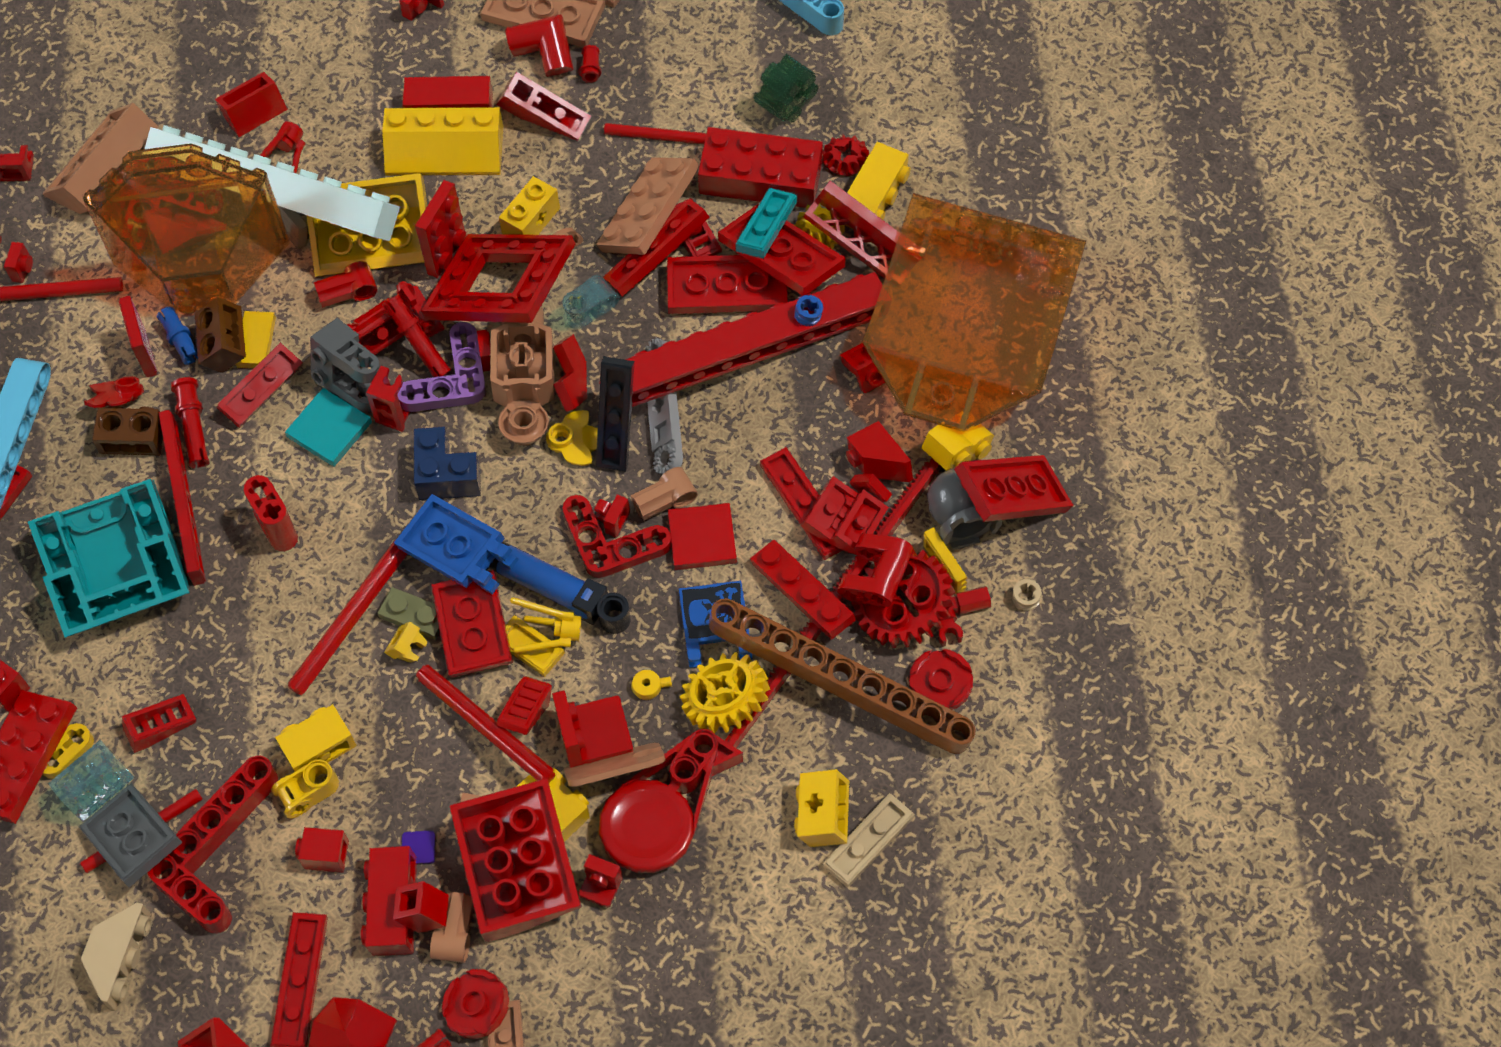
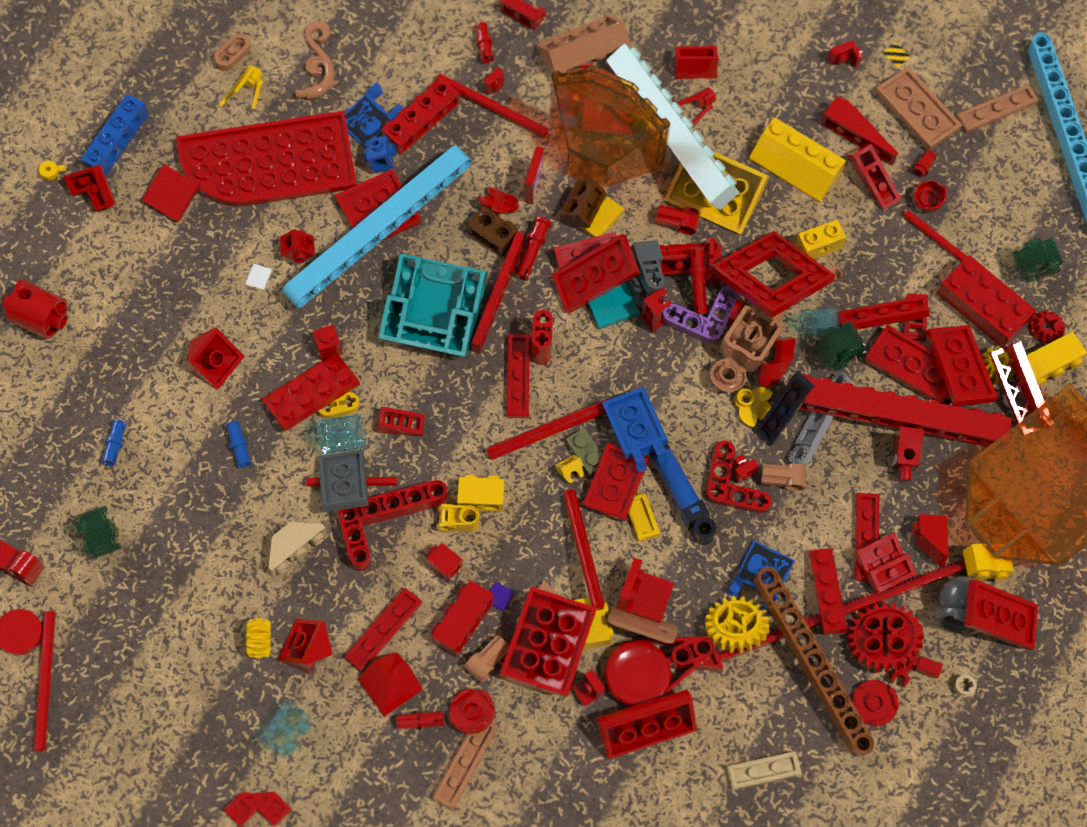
camera: 30 degrees right, 5 degrees up
(178, 335) = (559, 187): blue pin -> none
(271, 578) = (518, 376): none -> red tile
(288, 401) = (596, 273): none -> red plate
(421, 907) = (476, 634): red brick -> none
(440, 229) = (757, 220): red plate -> none
(441, 472) = (657, 373): dark blue brick -> none
(448, 92) = (820, 130): red brick -> none
(475, 61) = (851, 124): none -> red slope
(527, 702) = (616, 553): red slope -> none
(546, 36) = (906, 127): red brick -> none
(565, 624) = (669, 521): yellow plant -> none
(620, 93) = (930, 196): none -> red hair
(631, 311) = (840, 346): none -> clear green brick
(648, 205) = (897, 282): nougat plate -> none
(652, 690) = (701, 588): yellow piece -> none
(697, 876) = (647, 724): none -> red brick
(702, 536) = (789, 517): red tile -> none
(766, 223) = (963, 342): teal tile -> none
(785, 378) = (909, 443): none -> red torso
(814, 304) = (944, 420): blue bush -> none
(822, 808) = (748, 733): yellow brick -> none
(862, 366) = (960, 473): red bracket -> none
(871, 484) = (916, 553): red tile -> none
(892, 560) = (894, 610): red connector -> none
(935, 546) = (928, 617): yellow tile -> none

